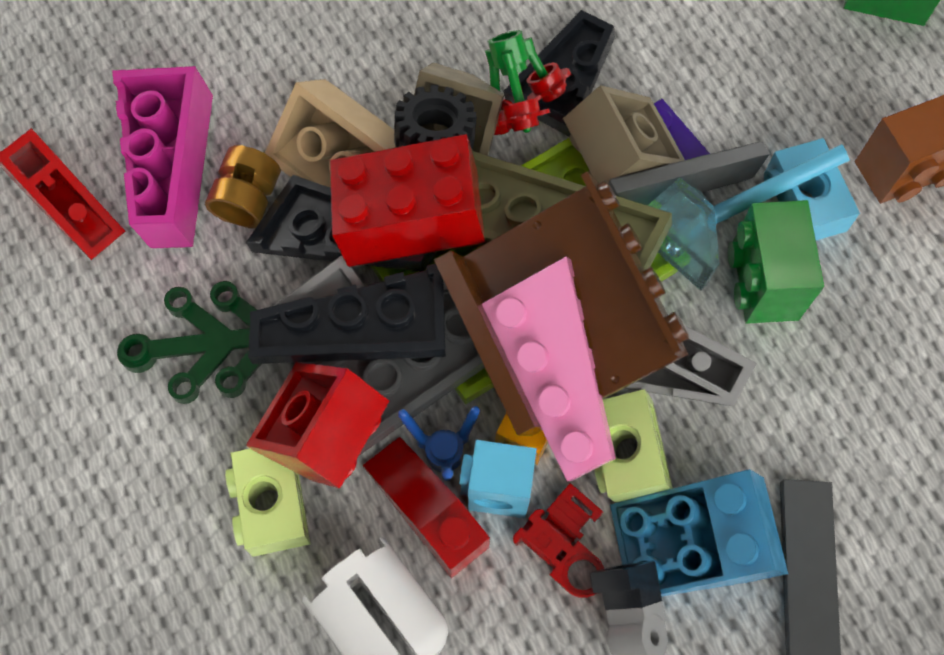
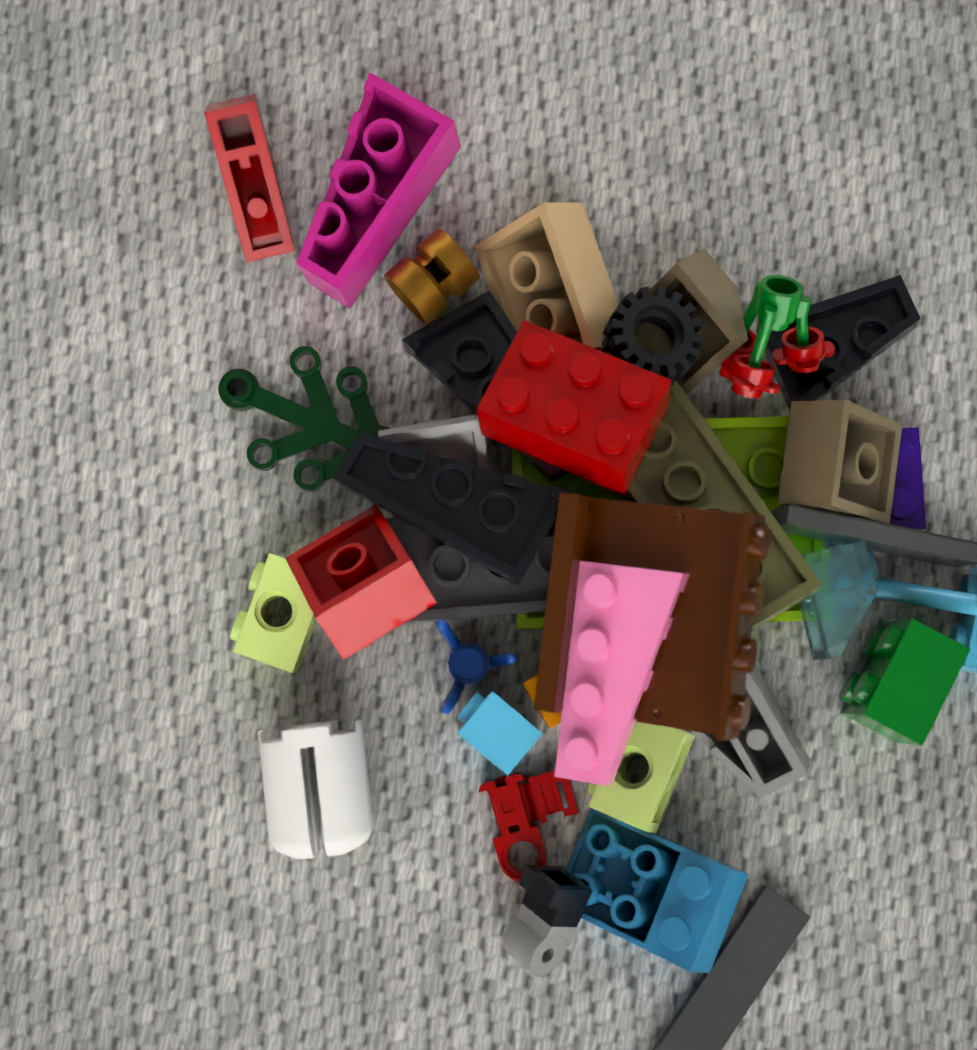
camera: 30 degrees right, 15 degrees up
(428, 507) = (418, 695): red slope -> none

